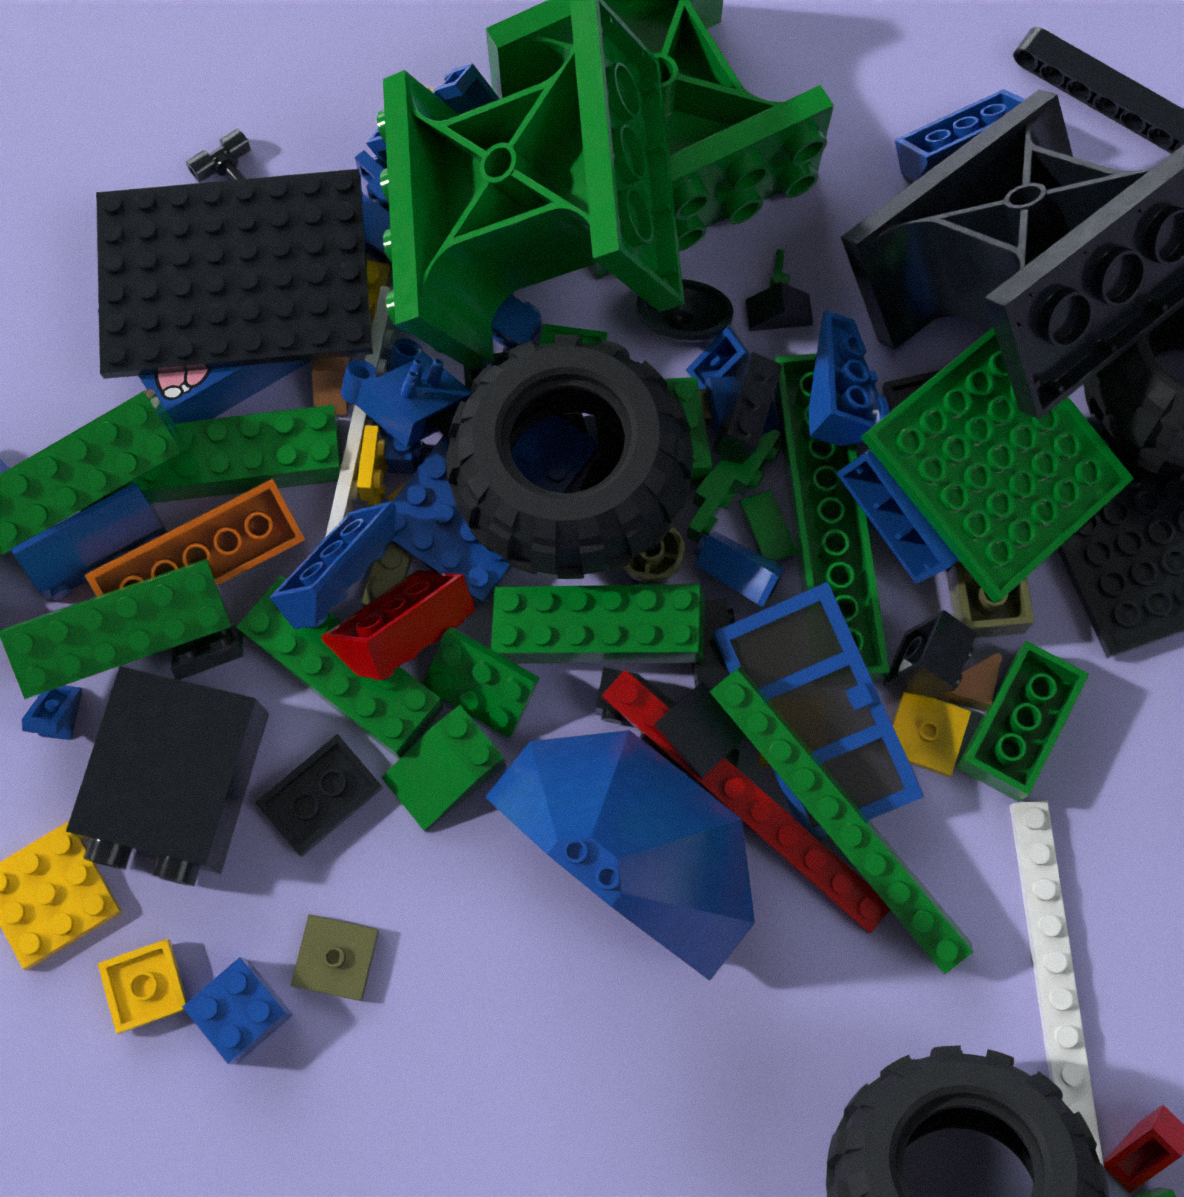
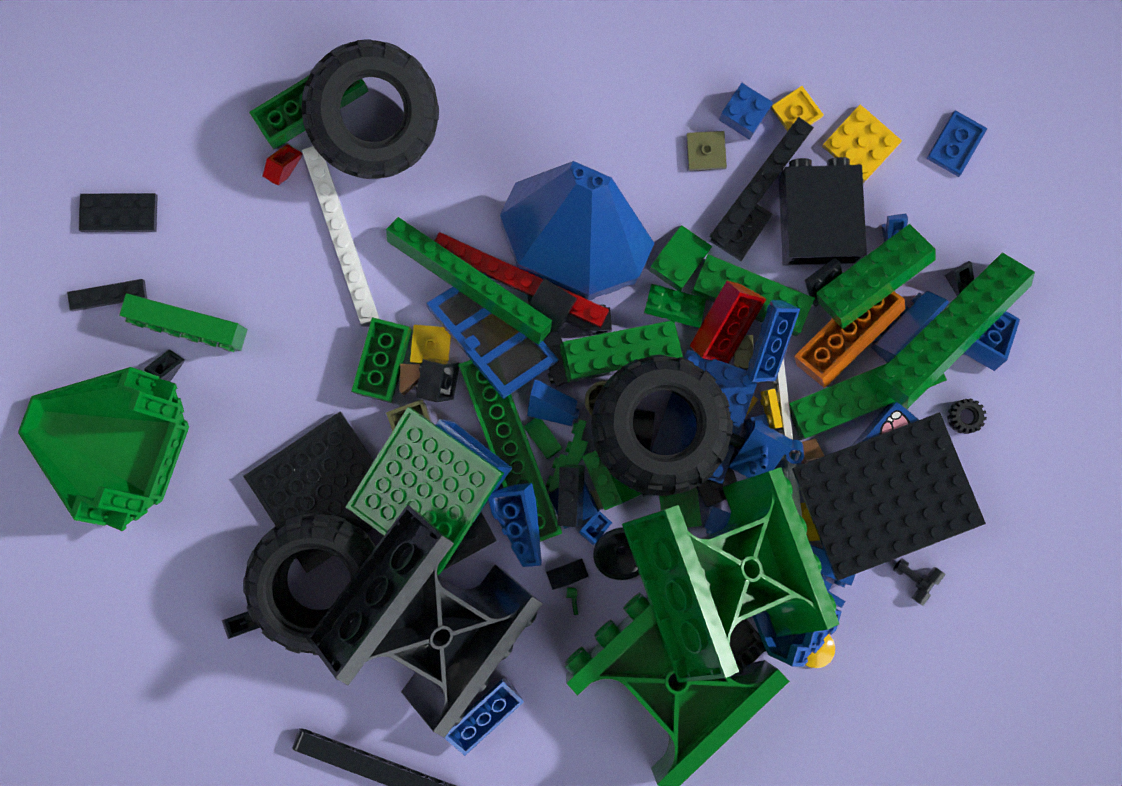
camera: 165 degrees right, 10 degrees up
(44, 371) = (978, 420): none -> black tyre
(252, 865) = (761, 182): none -> black plate

